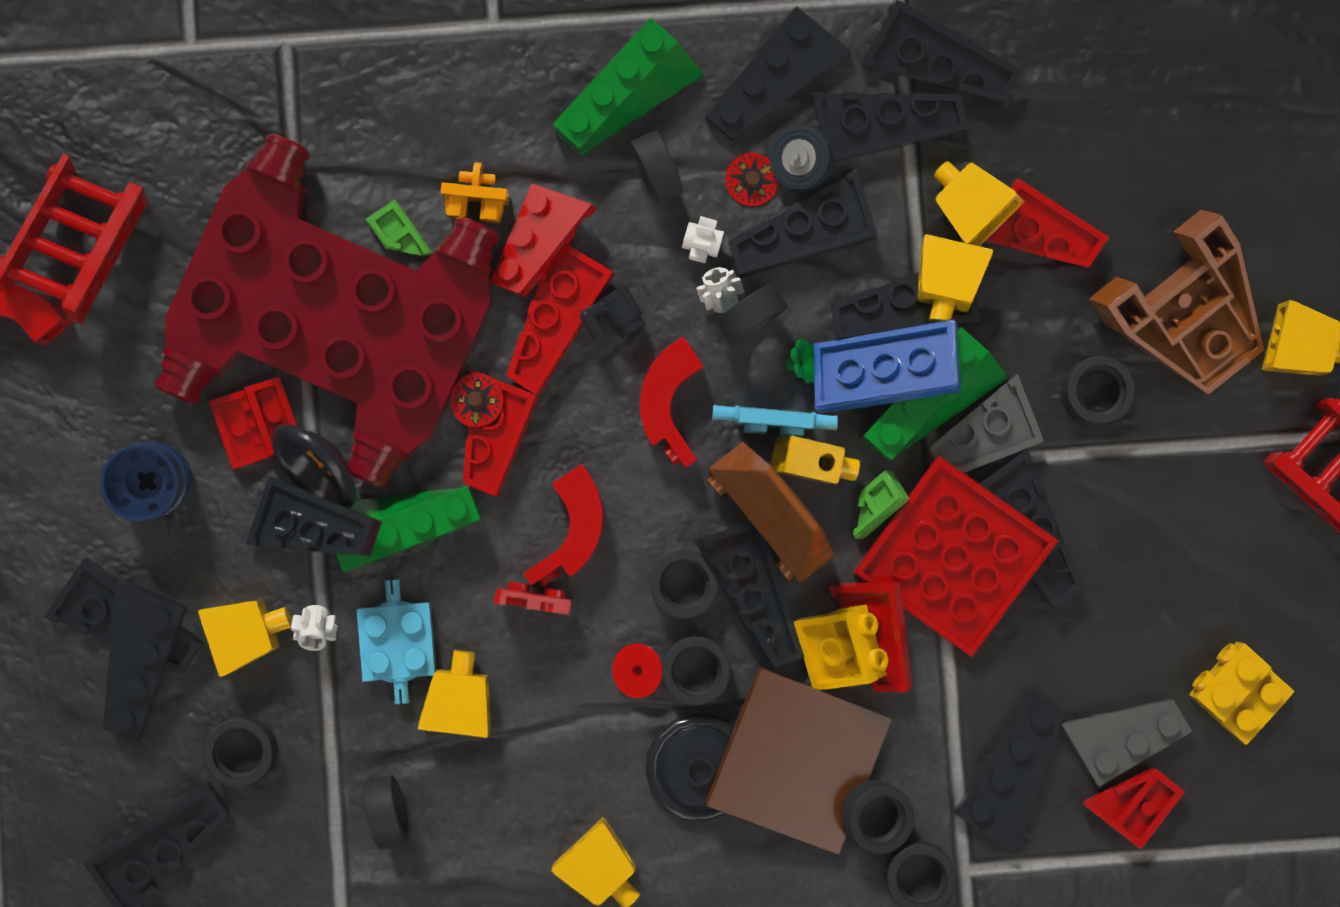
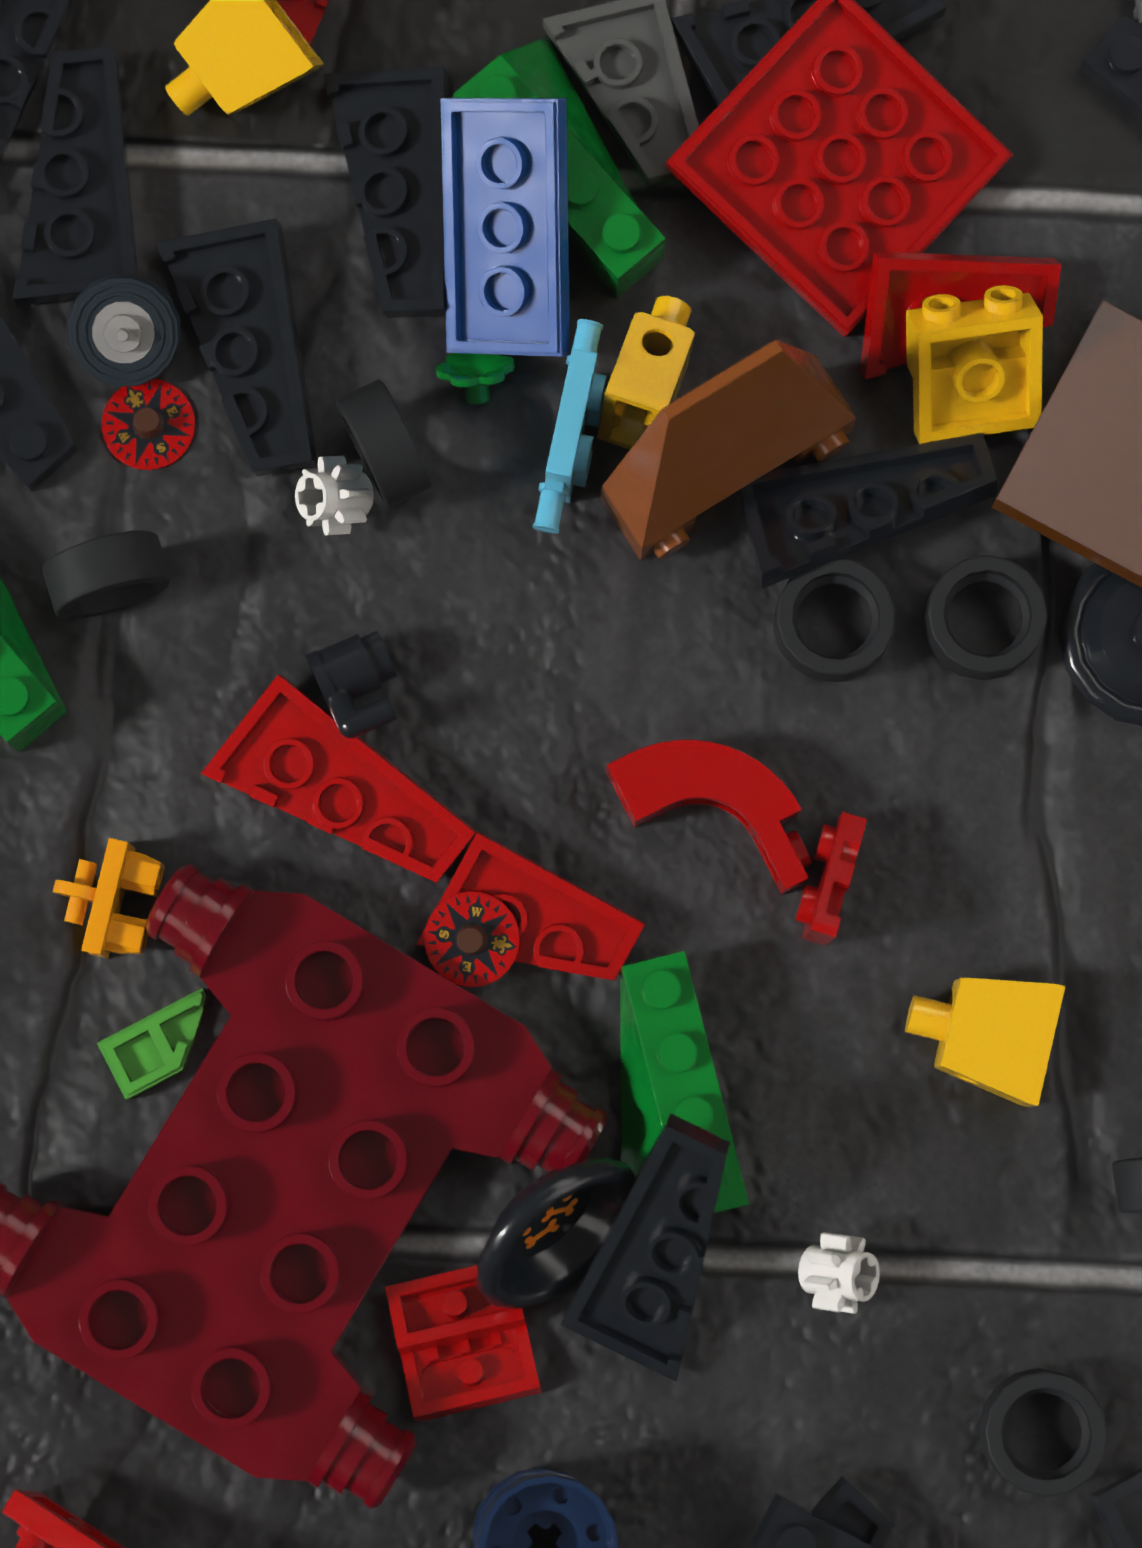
camera: 85 degrees left, 5 degrees down
(242, 633) = (833, 1403): yellow torso -> none
(396, 641) = (878, 1132): medium azure plate -> none
(537, 235) = (196, 798): red wing -> none
(637, 670) = (974, 718): red piece -> none
(662, 380) = (509, 627): red arch -> none
(702, 239) = (242, 514): white gear -> none
(879, 502) = (733, 275): bright green tile -> none
(949, 275) = (361, 104): yellow torso -> none

